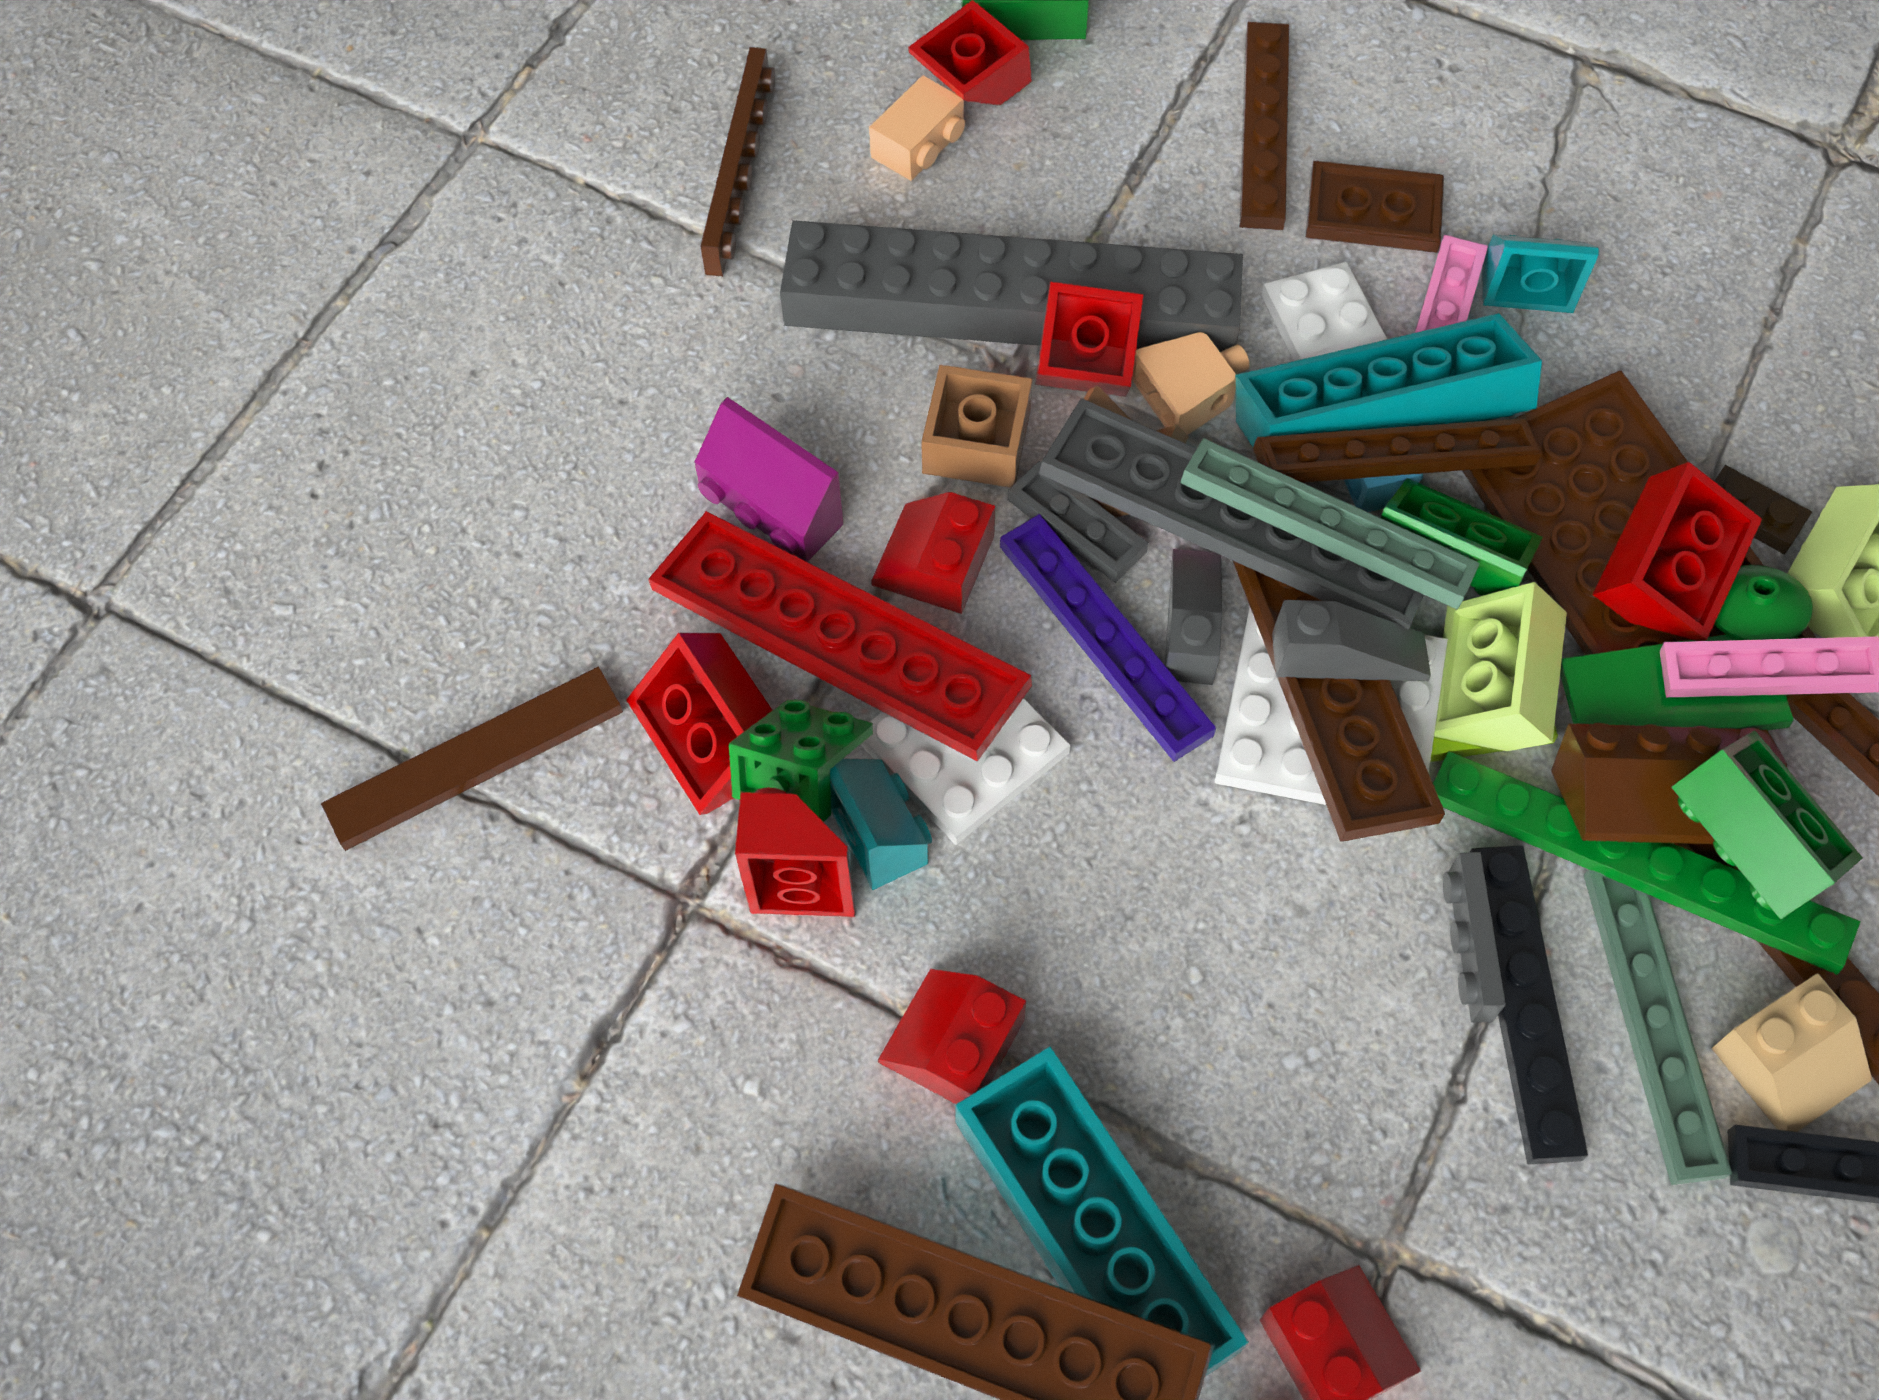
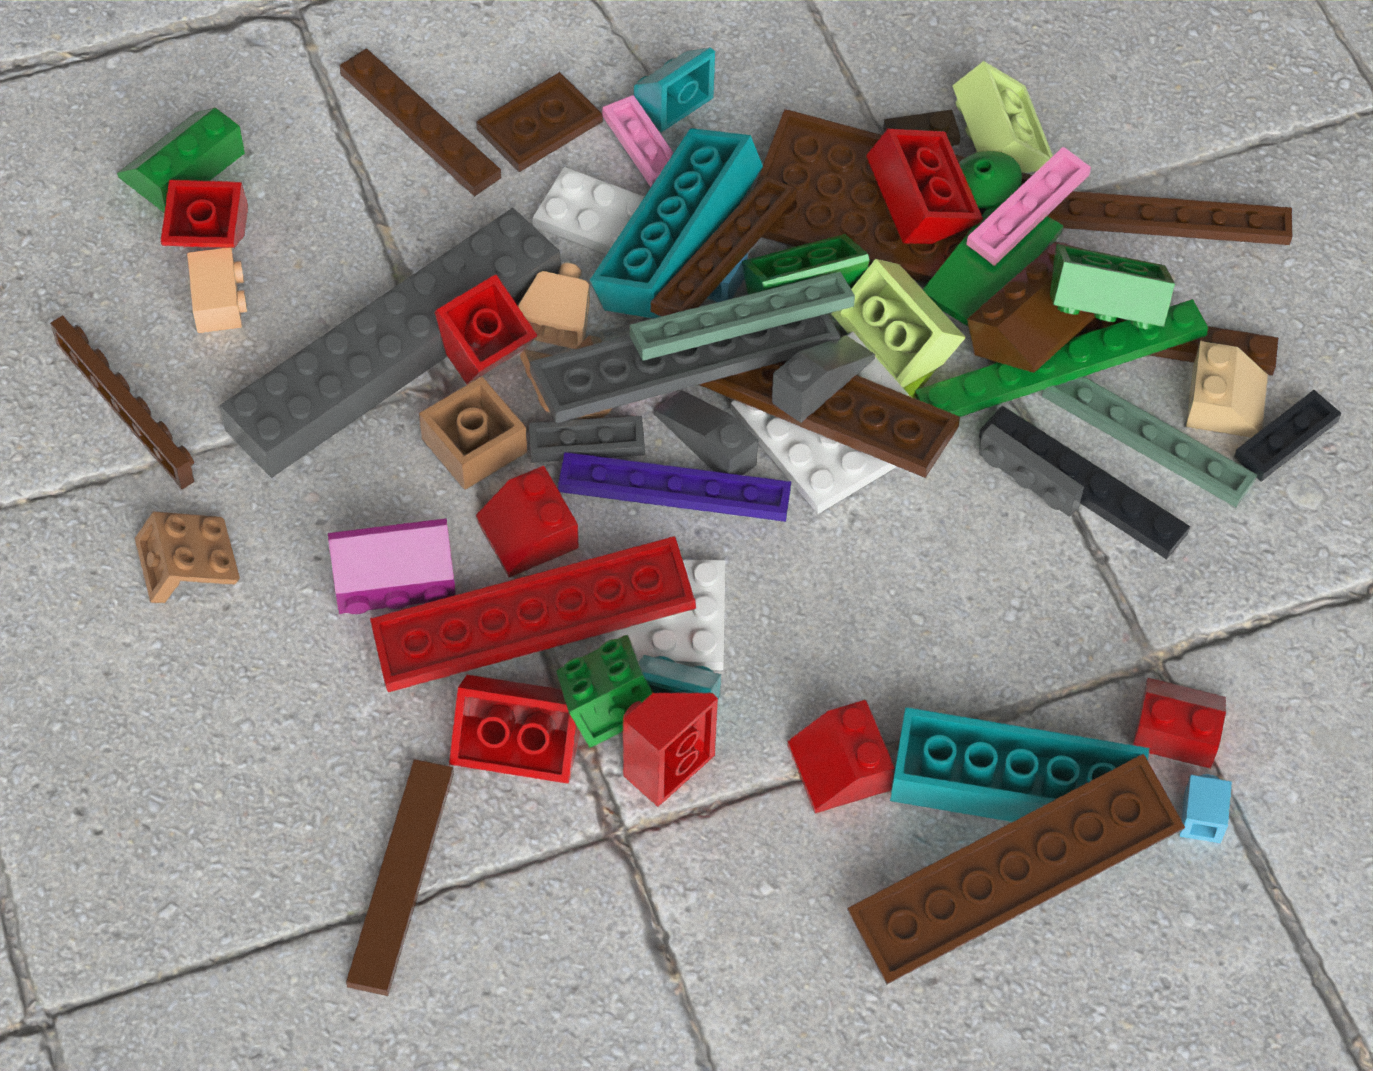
camera: 50 degrees left, 5 degrees down
(640, 327) = (184, 549): none -> medium nougat bracket

